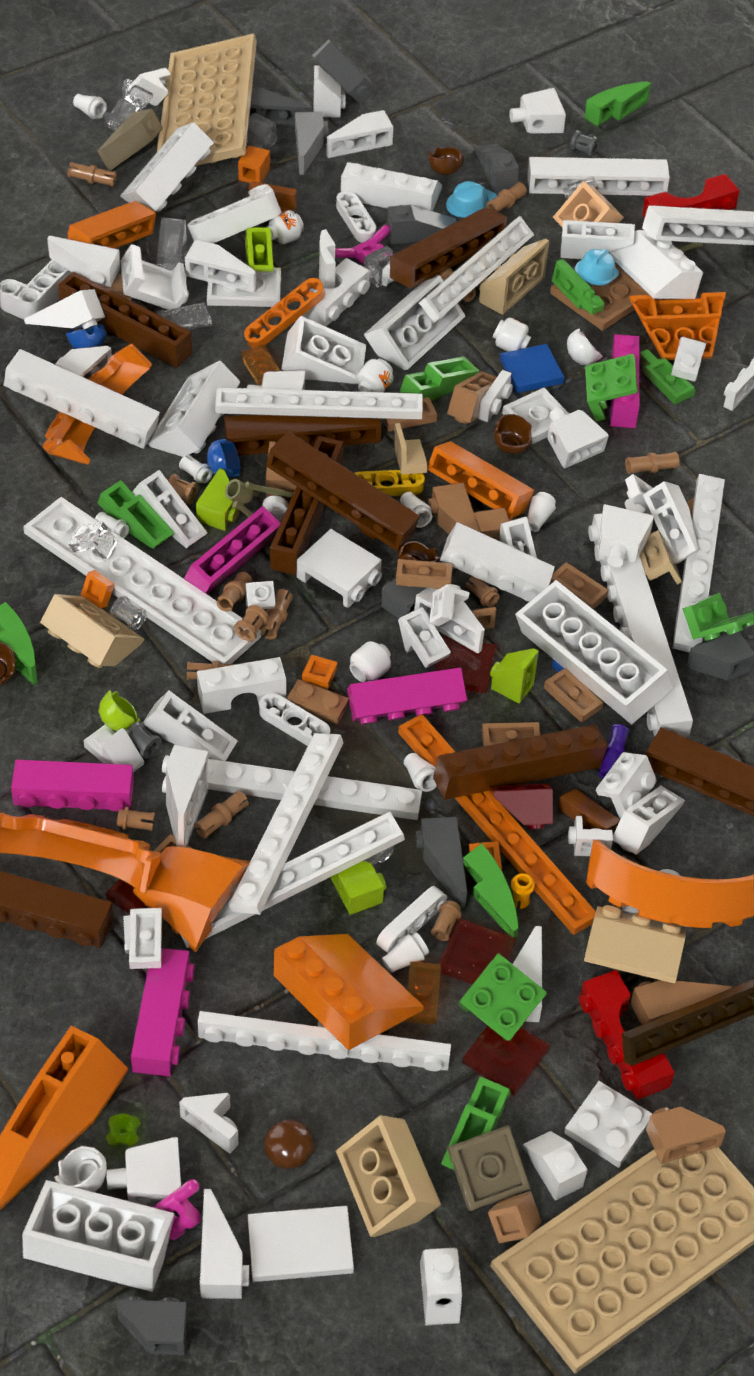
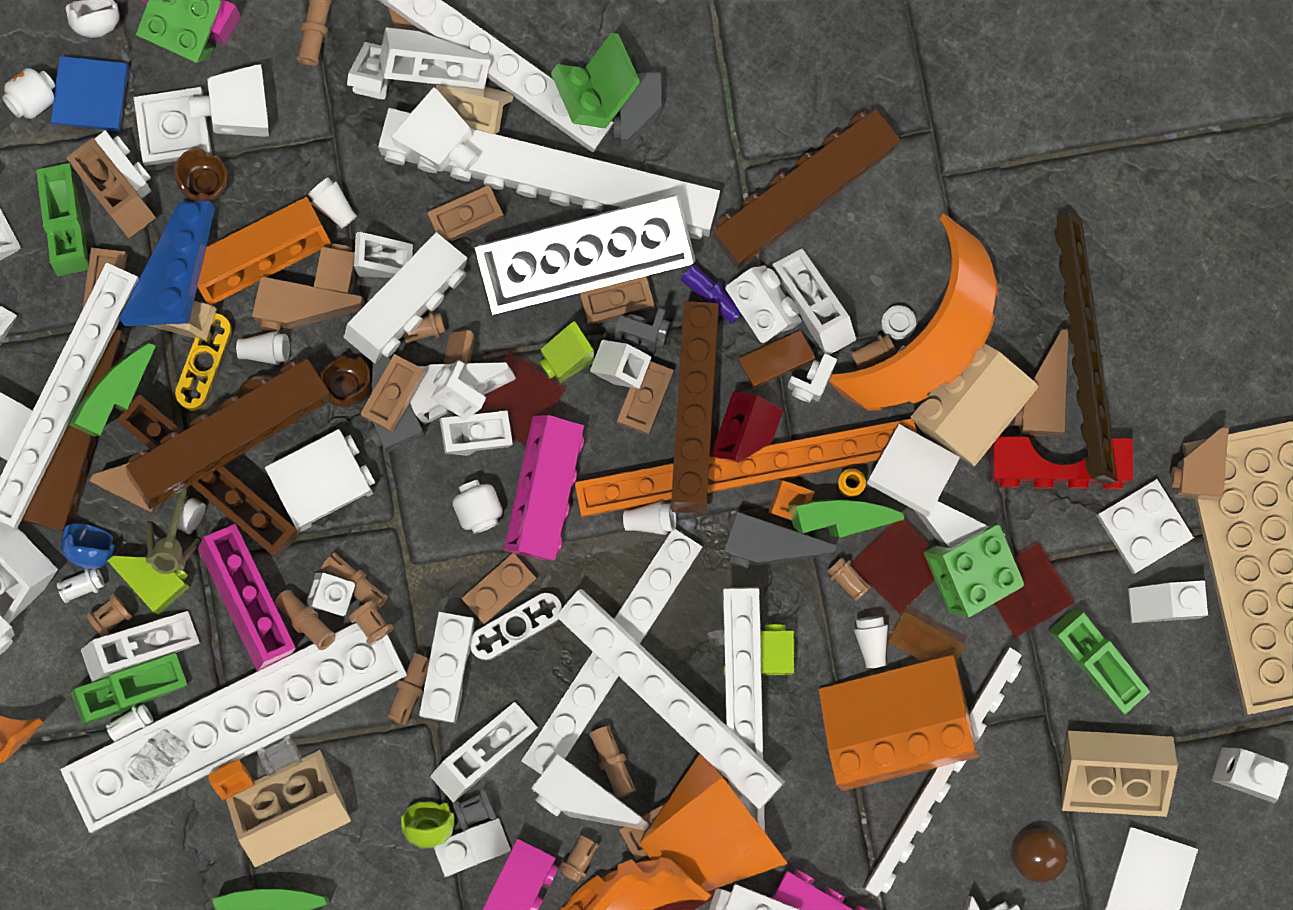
camera: 65 degrees left, 30 degrees up
(319, 671) = (461, 569): orange plate -> none
(338, 426) = (111, 391): none -> bright green slope
(375, 376) = (26, 298): white head -> none
(411, 918) = (834, 615): white beam -> none
(440, 434) = (173, 271): none -> blue wing
(488, 1168) = (1151, 671): dark tan tile -> none
(514, 1217) = (1209, 669): medium nougat panel -> none
(526, 708) = (620, 364): none -> white brick
(556, 921) = (913, 470): none -> white tile
(557, 710) = (641, 336): none -> dark grey bracket

